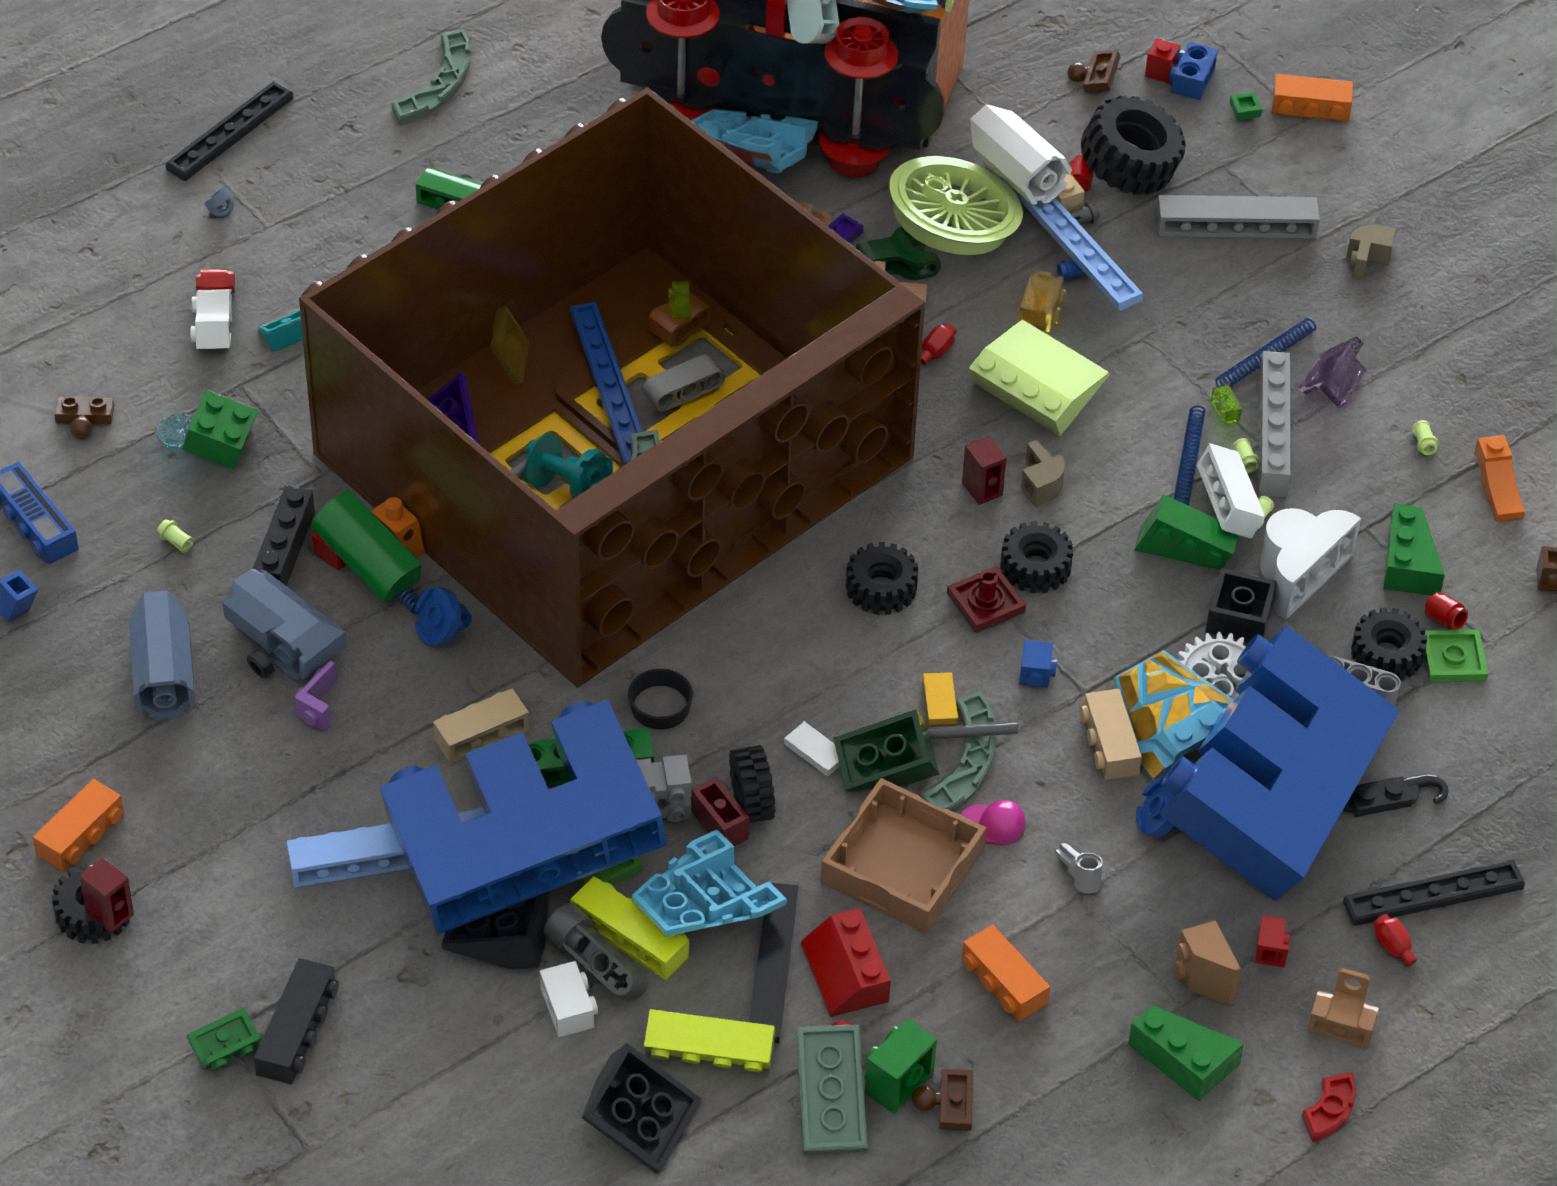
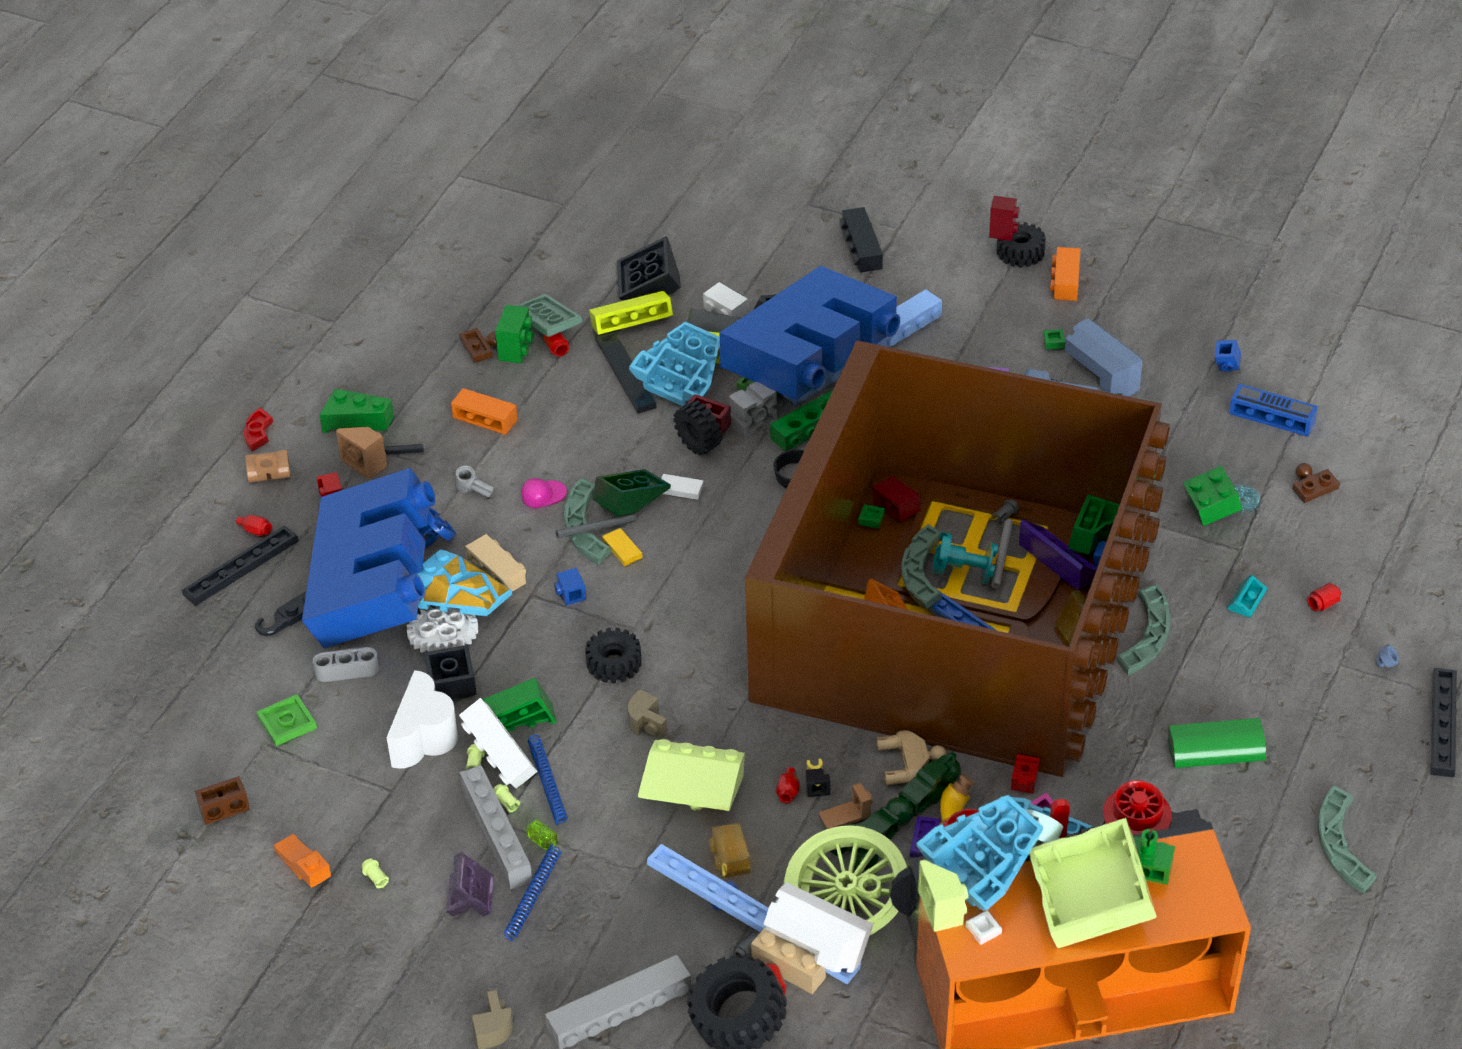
camera: 155 degrees right, 5 degrees down
(169, 531) = (1179, 436): yellowish green pin -> none
(188, 736) = (1054, 339): none -> green plate
(213, 318) = (1298, 569): white brick -> none
(224, 1039) = (889, 218): green bracket -> none
(846, 963) = (577, 382): red slope -> none
(887, 563) = (709, 586): black tyre -> none
(903, 855) = (583, 442): medium nougat tile -> none
(984, 470) = (684, 685): dark red brick -> none
(986, 599) = (631, 614): dark red plate -> none
(1158, 981) = (404, 449): none -> black bar
(1393, 629) = (332, 688): black tyre -> none
(1412, 554) = (346, 768): green wedge -> none
(1446, 611) = (303, 736): red brick -> none

